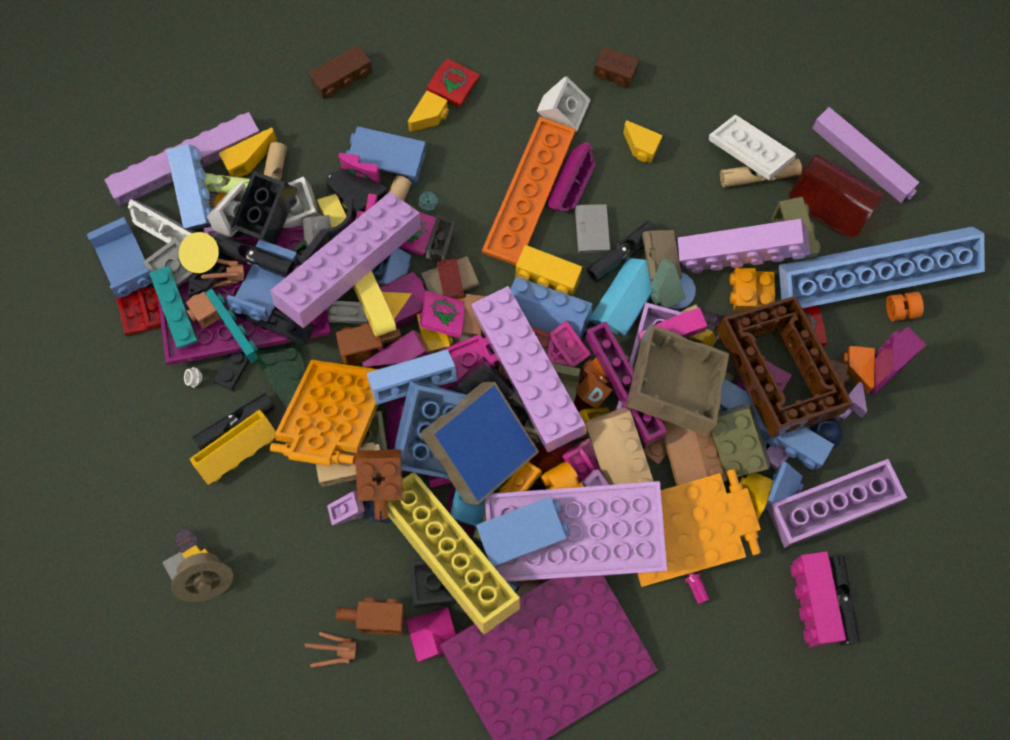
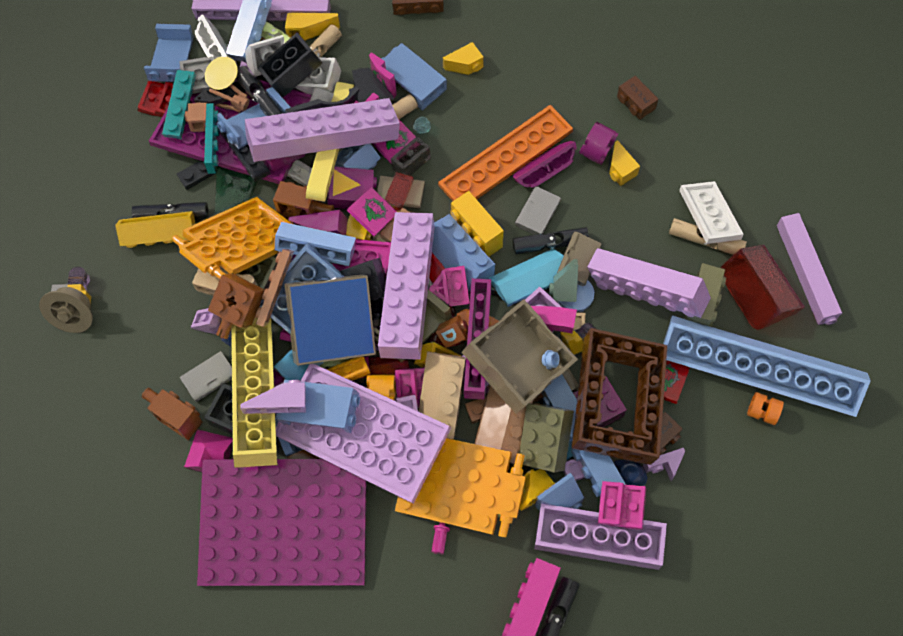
camera: 35 degrees right, 5 degrees down
(192, 377) = (163, 164): white plate -> none
(345, 649) = (137, 426): nougat plant -> none
(383, 563) = (207, 376): none -> light grey piece
(407, 432) = (270, 295): none -> nougat plate
(453, 82) = (499, 48): red slope -> none
(496, 541) = (281, 399): none -> lavender slope
(564, 104) = (577, 105): white slope -> none
(610, 132) = (598, 143): none -> magenta brick
(704, 367) = (550, 359): none -> light blue plate
(751, 288) = (641, 323): light orange plate -> none
(843, 464) = (622, 505): none -> dark pink slope
(861, 365) = (694, 436): orange slope -> none
(894, 356) = (723, 442): magenta slope -> none

